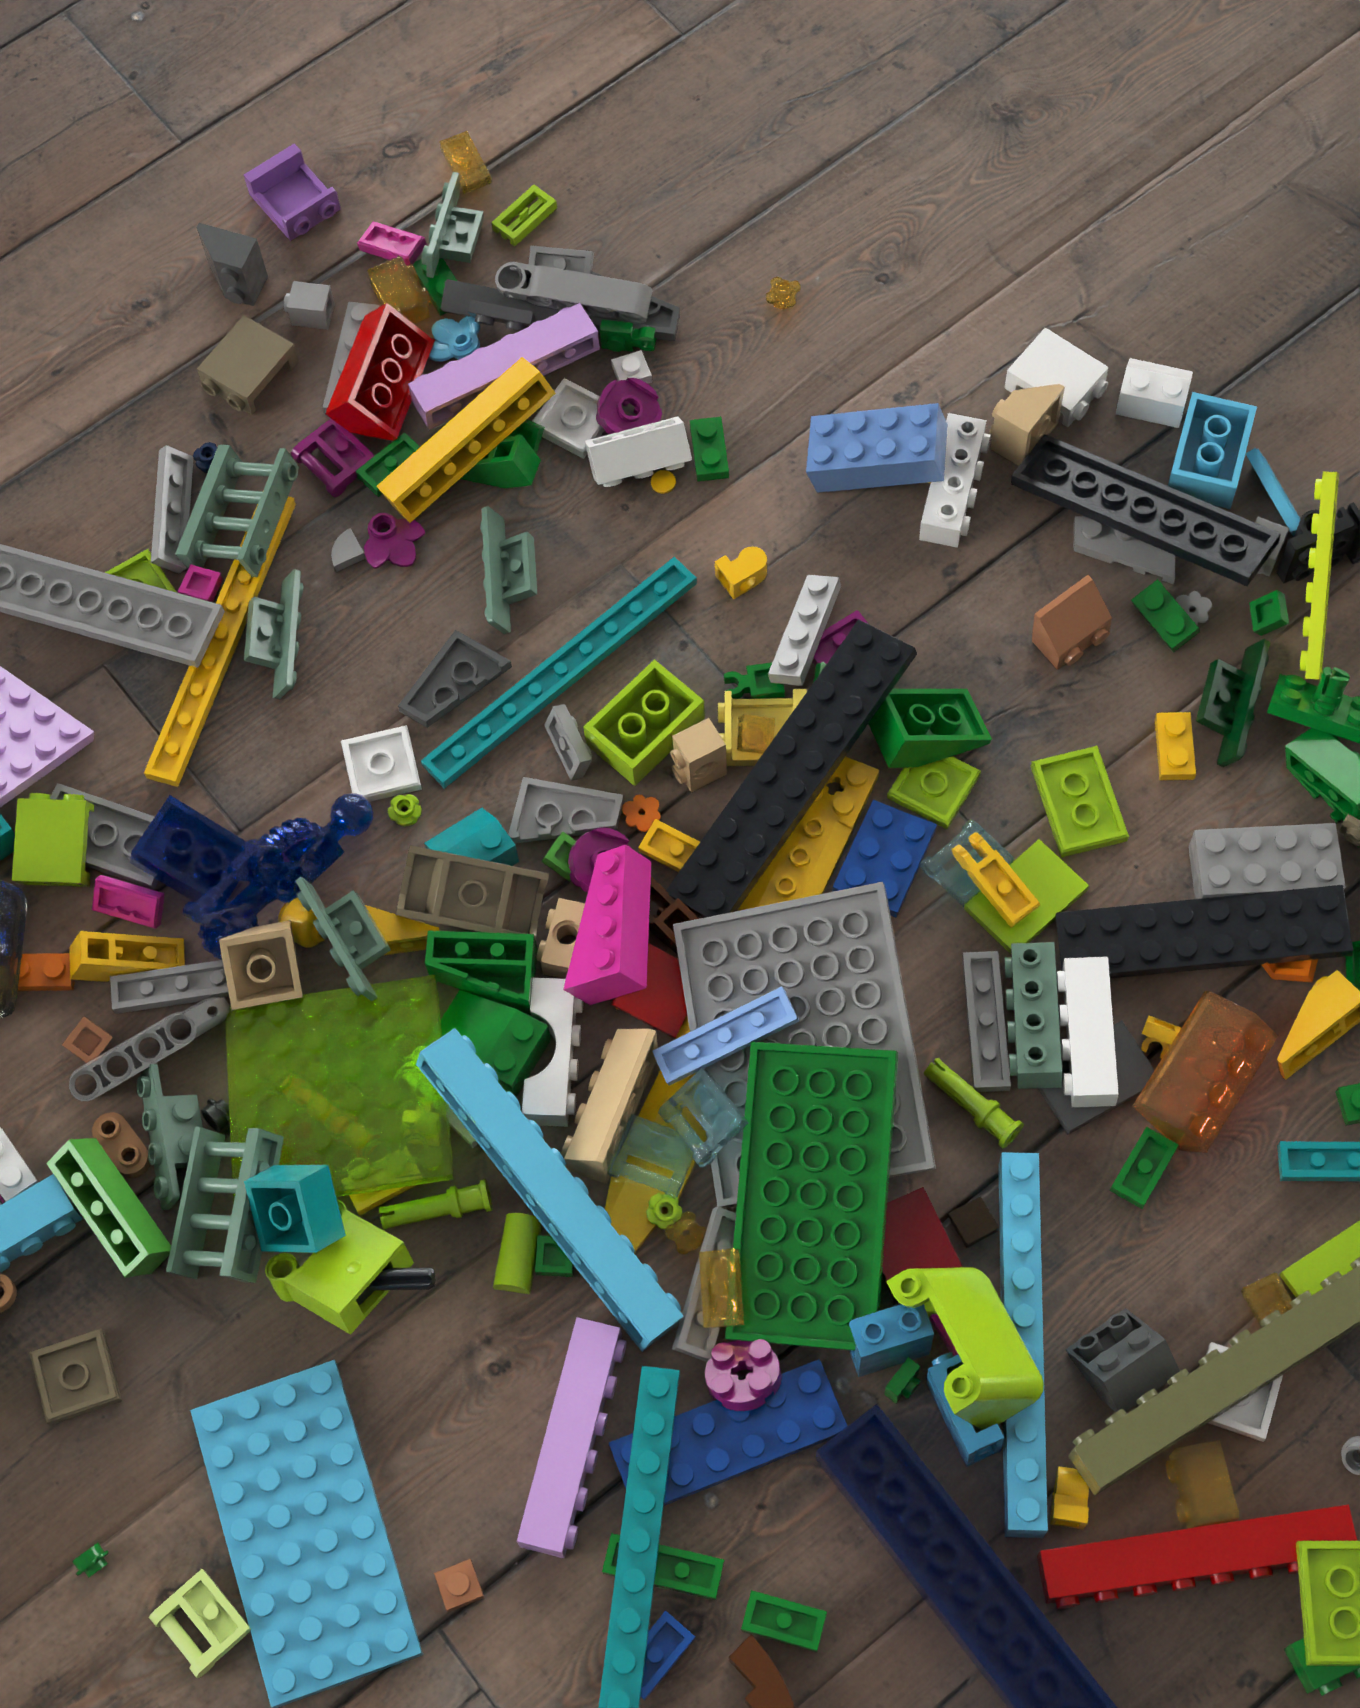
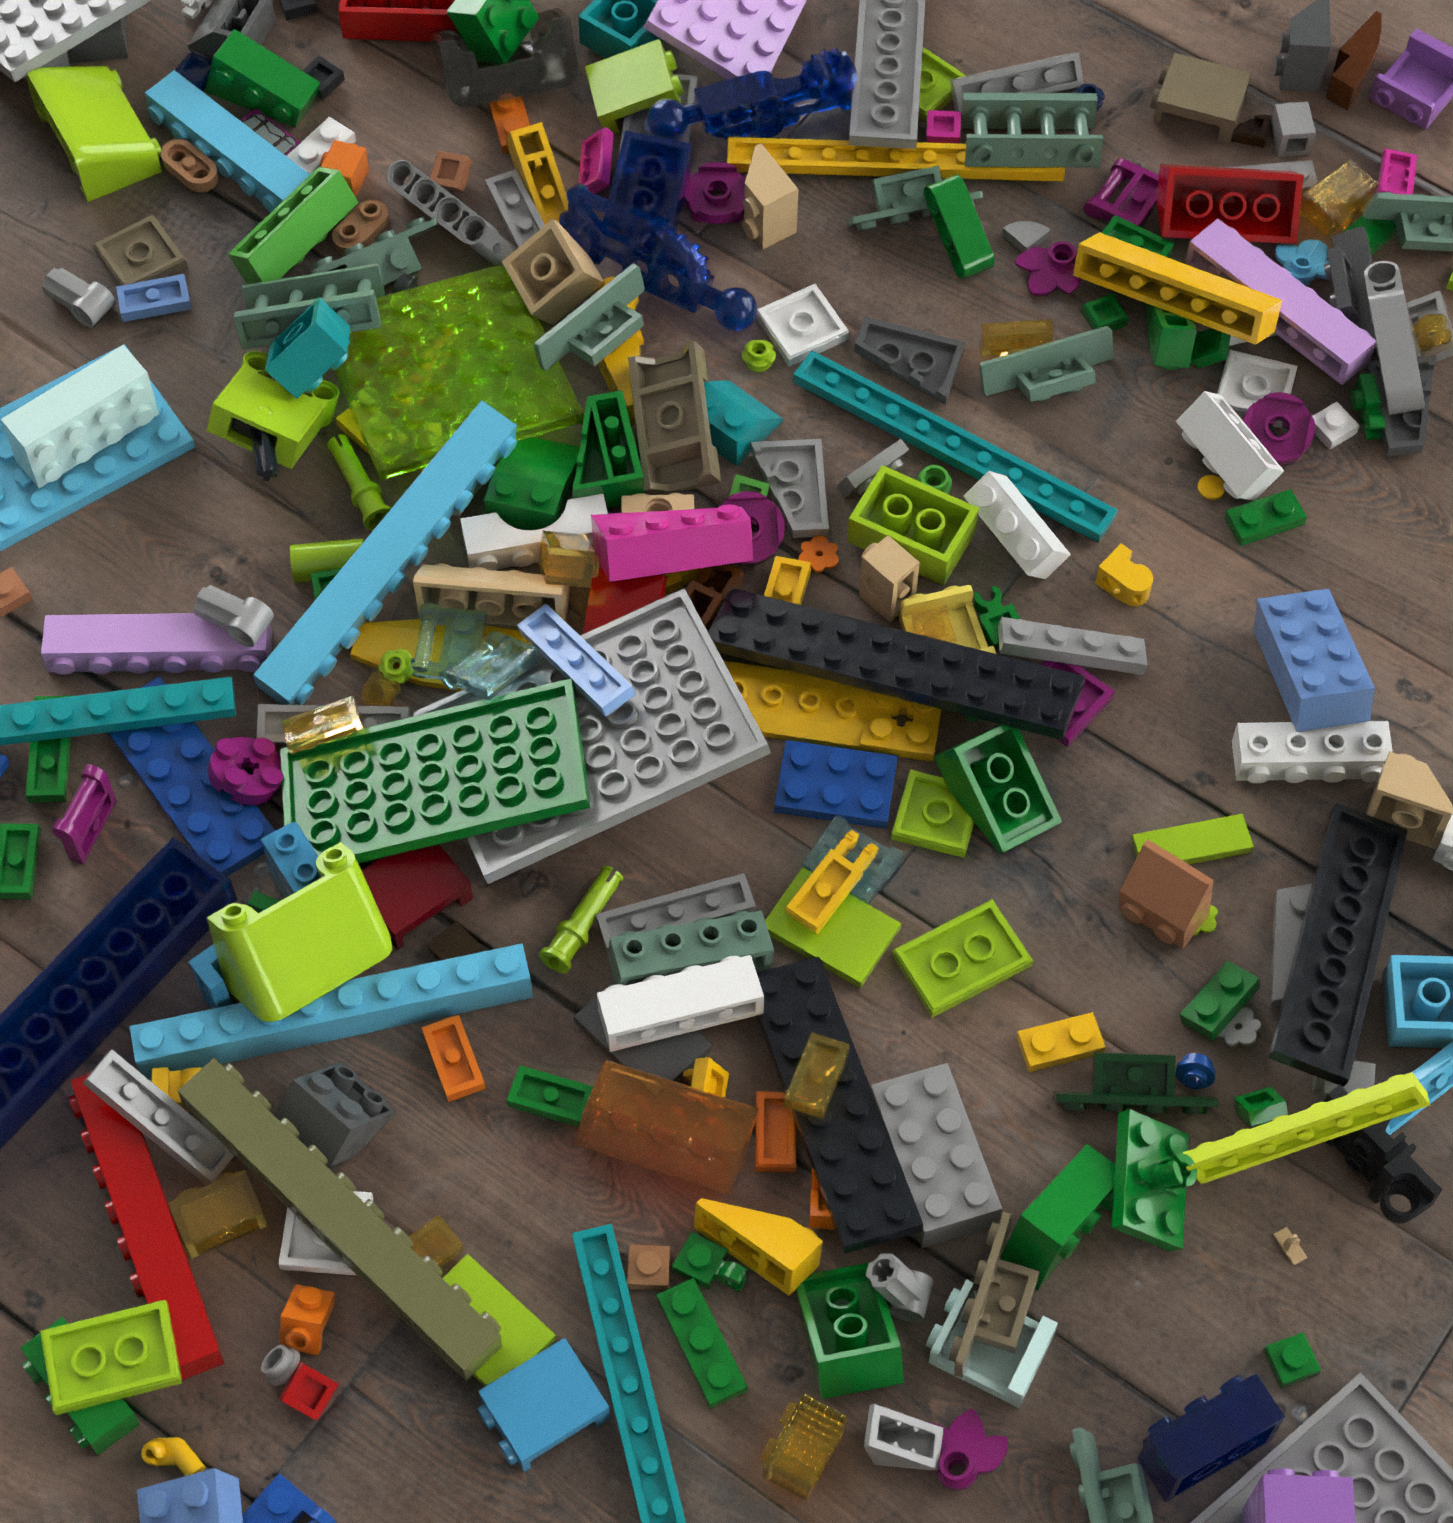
camera: 70 degrees right, 5 degrees down
(40, 1141) = (350, 161): none -> orange brick
(120, 735) = (759, 101): none -> clear blue arm
(122, 1441) = (84, 300): none -> light grey piece
(141, 1370) = (153, 297): none -> medium blue plate
(208, 781) = (713, 209): none -> magenta plate
(237, 753) = (769, 201): none -> tan slope
(273, 243) = (1355, 63): none -> reddish brown slope
(294, 1458) = (80, 416): none -> light aqua brick
(297, 334) = (1253, 131): none -> dark brown tile
(329, 598) = (959, 226): none -> green beam
(456, 512) = (1105, 312): none -> green tile
(461, 599) = (1014, 336): none -> clear yellow plate
(579, 257) = (1429, 324): none -> clear yellow plate
(586, 1338) = (241, 618): none -> light grey piece
(591, 690) = (937, 475): none -> bright green plate
(605, 1022) = (567, 559): none -> clear yellow brick
(671, 638) = (1017, 525): none -> white brick
(745, 1531) = (86, 814): none -> magenta plate
(1013, 595) = (1201, 840): none -> lime tile
(1088, 1244) = (453, 1058): none -> orange plate
(1108, 1518) = (158, 1117): none -> light grey plate
(1191, 933) = (816, 1075): none -> clear yellow plate
(1192, 984) = (774, 1134): none -> orange tile
(1228, 649) = (1195, 1071): none -> blue plate
(1317, 1425) = (305, 1318): none -> orange bracket
(1318, 1122) = (648, 1267): none -> medium nougat plate
(1324, 1076) = (706, 1263): none -> green plate

